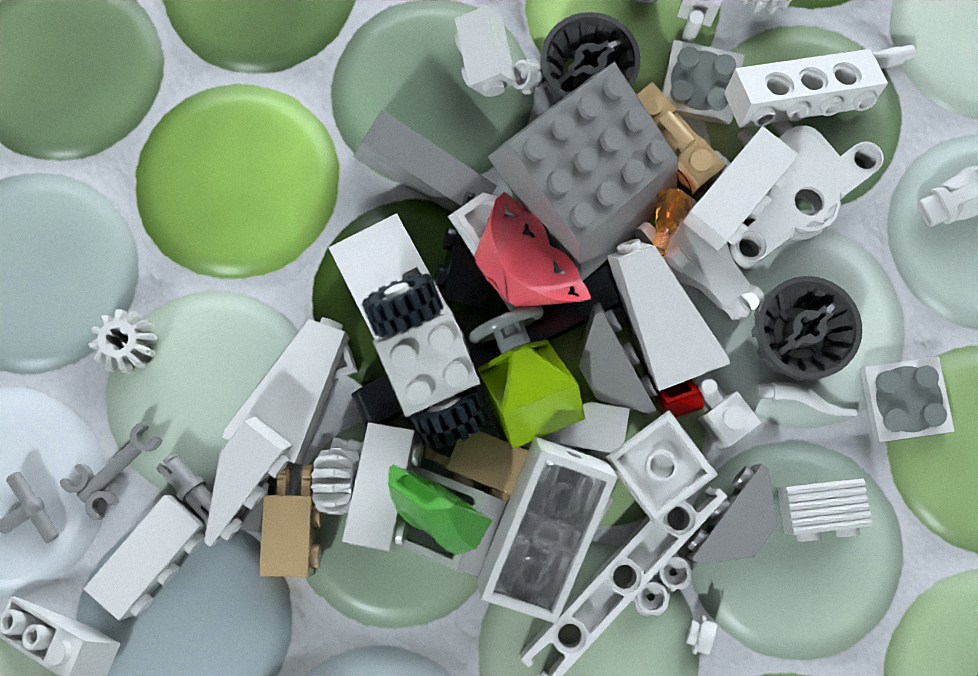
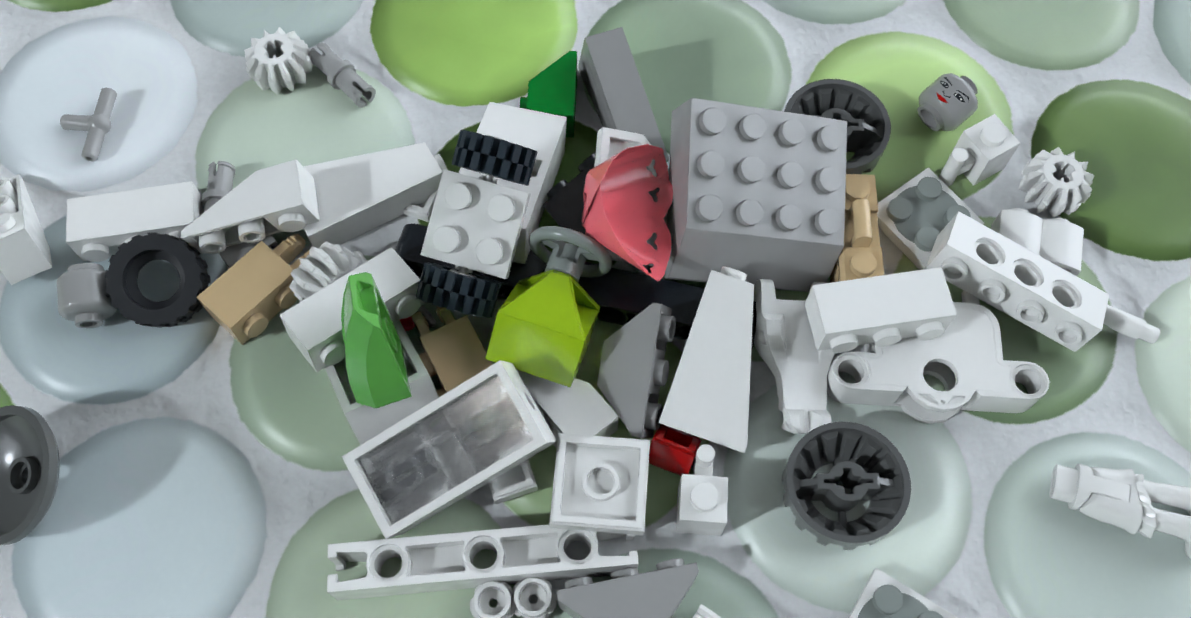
camera: 40 degrees right, 15 degrees down
(91, 486) = (155, 142): light grey bar -> none
(171, 641) = (84, 295): none -> light grey head
(182, 311) = (342, 75): none -> light grey pin
(224, 616) = (124, 272): none -> black tyre
(363, 198) = (555, 90): none -> green slope
(484, 51) = (753, 61): white brick -> none
(527, 75) = (773, 99): white plate -> none
(671, 210) = (792, 286): clear orange cone -> none
(791, 391) = (787, 535): white animal -> none
(797, 38) = (1049, 238): none -> white brick

